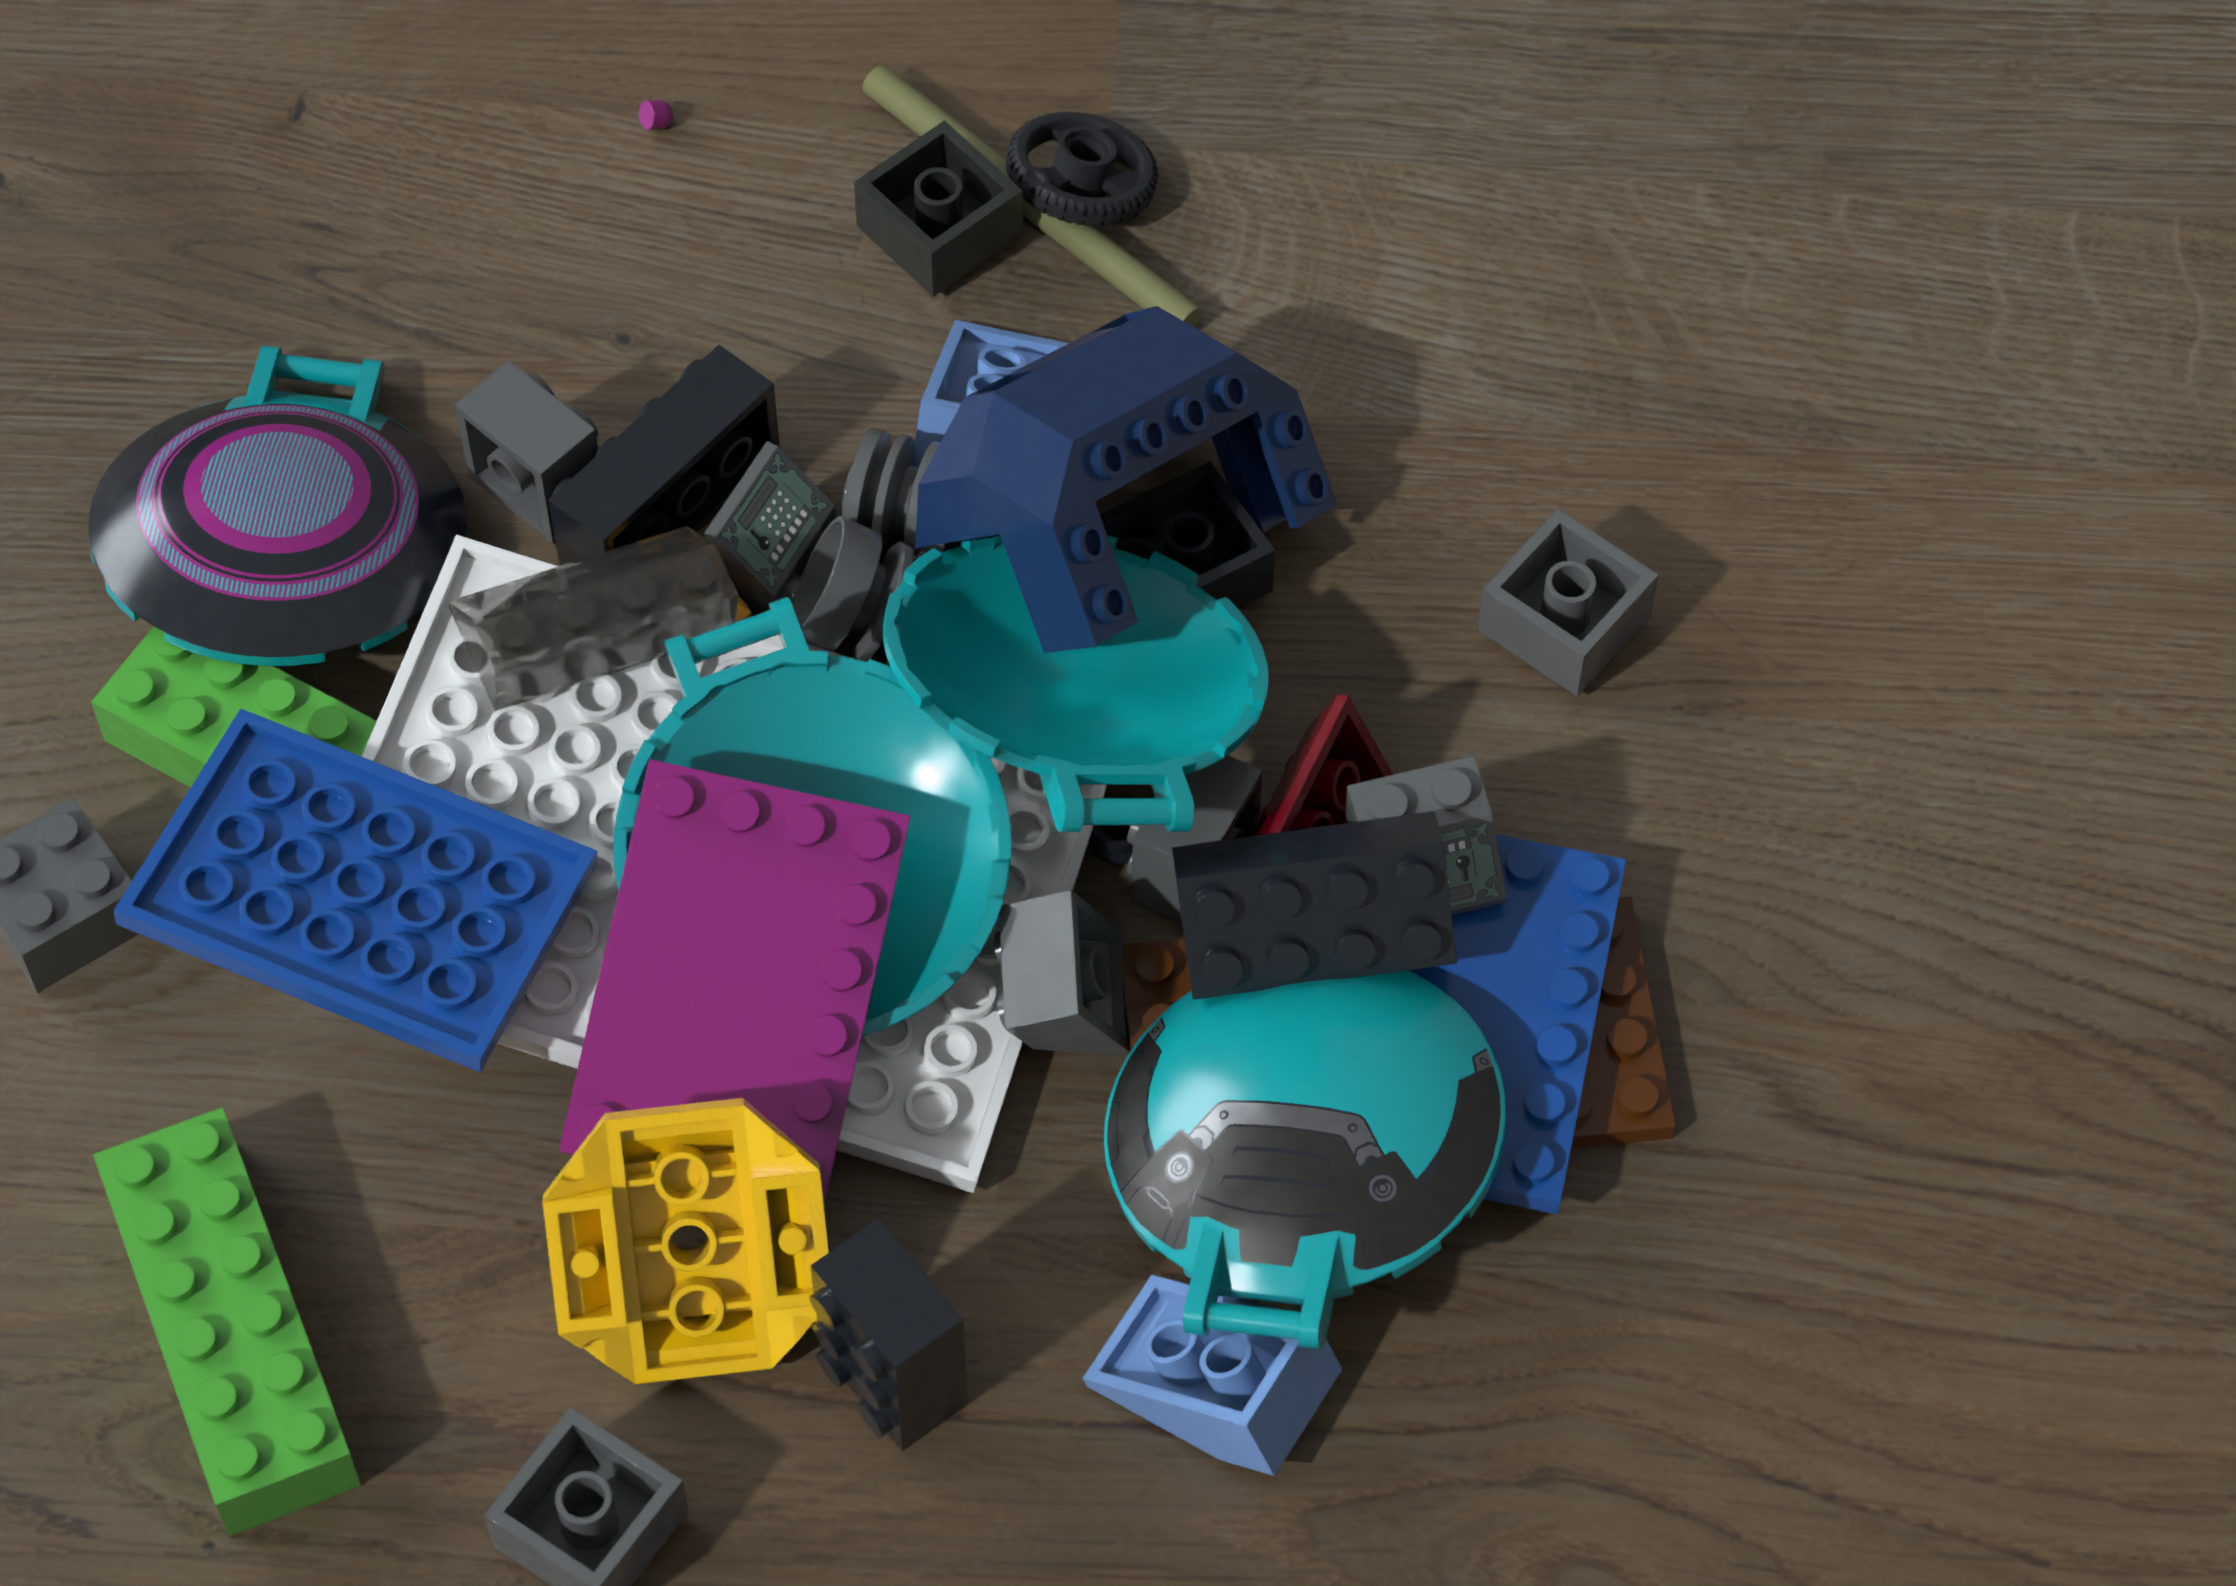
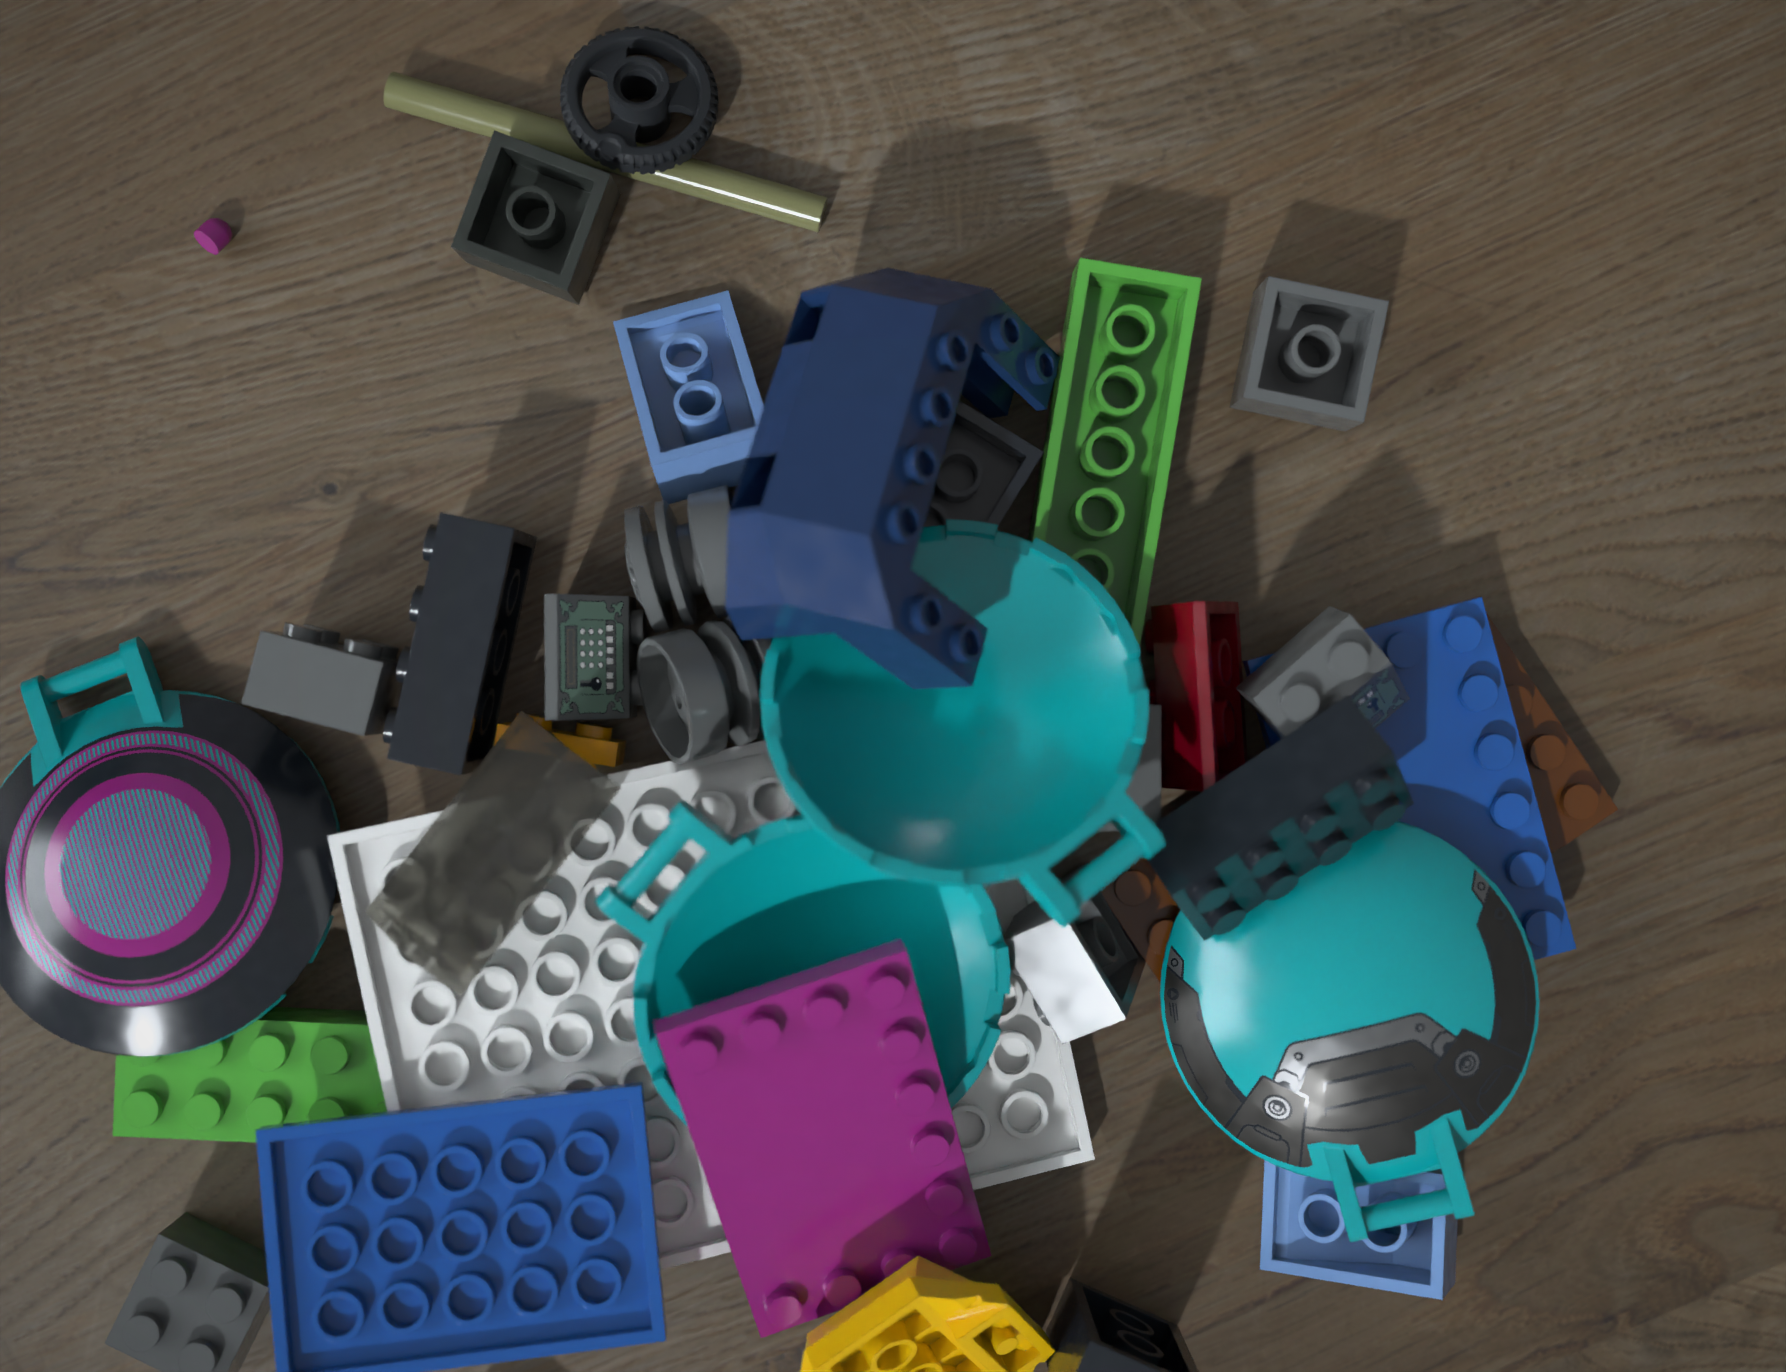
camera: 25 degrees left, 30 degrees up
(1356, 579) = (1115, 424): none -> bright green brick

